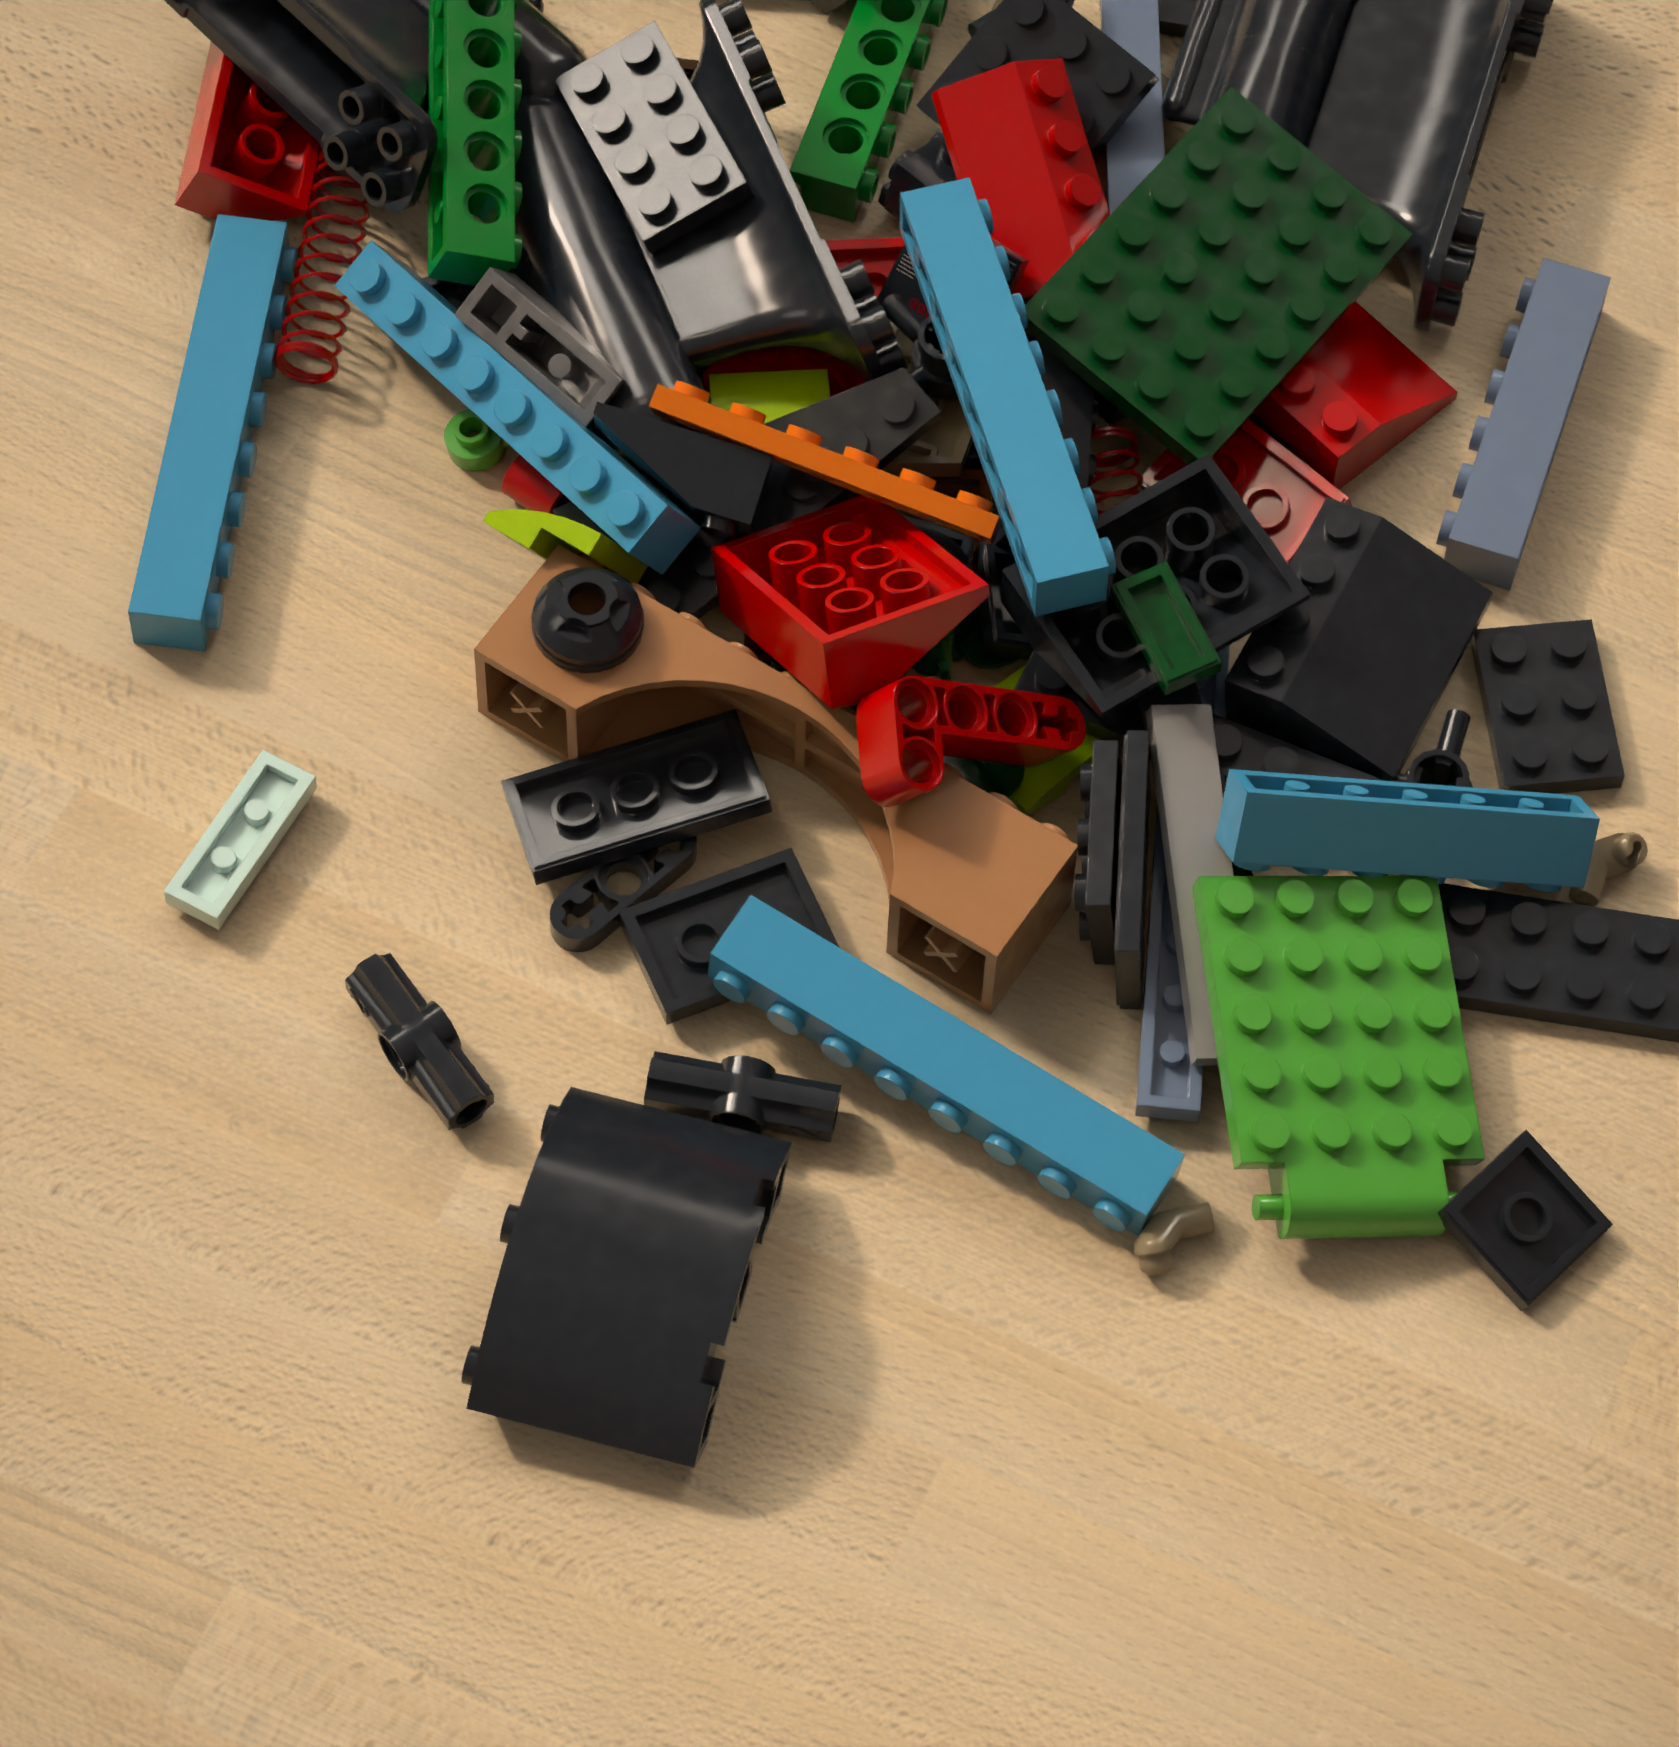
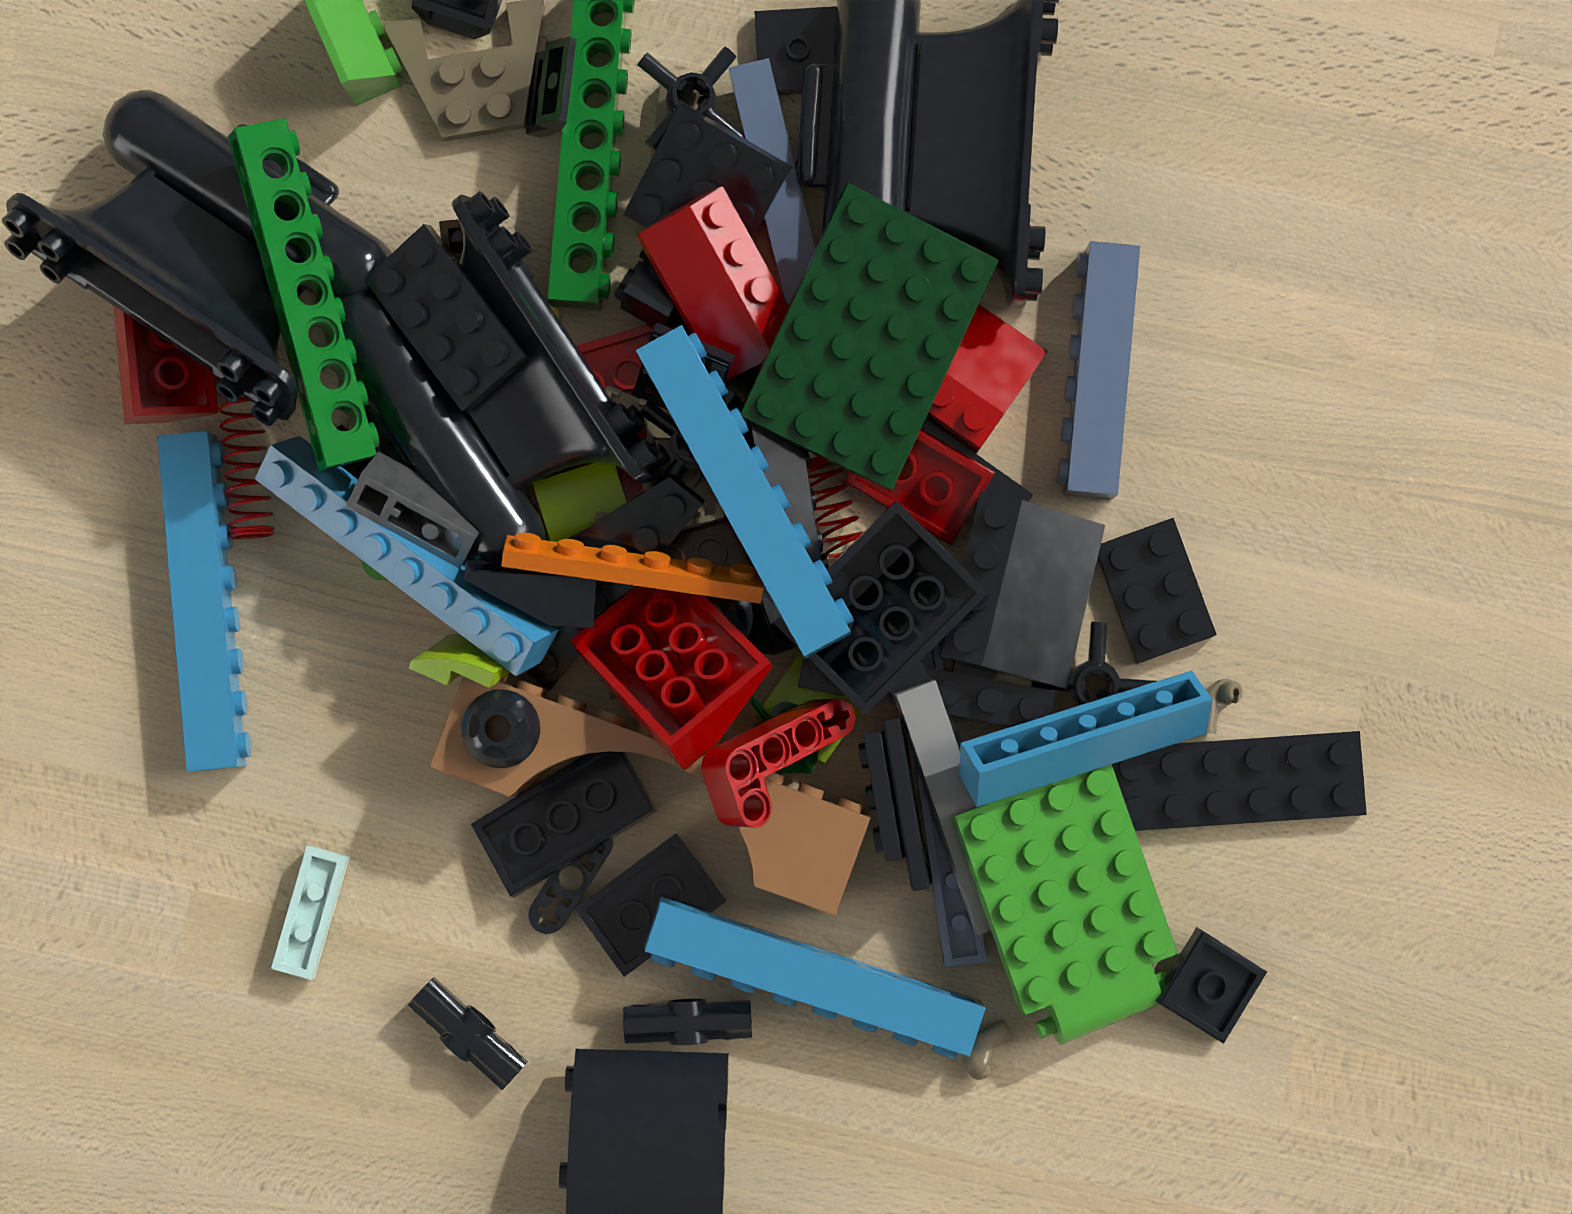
camera: 10 degrees left, 25 degrees up
(1165, 628) = (895, 645): dark green tile -> none

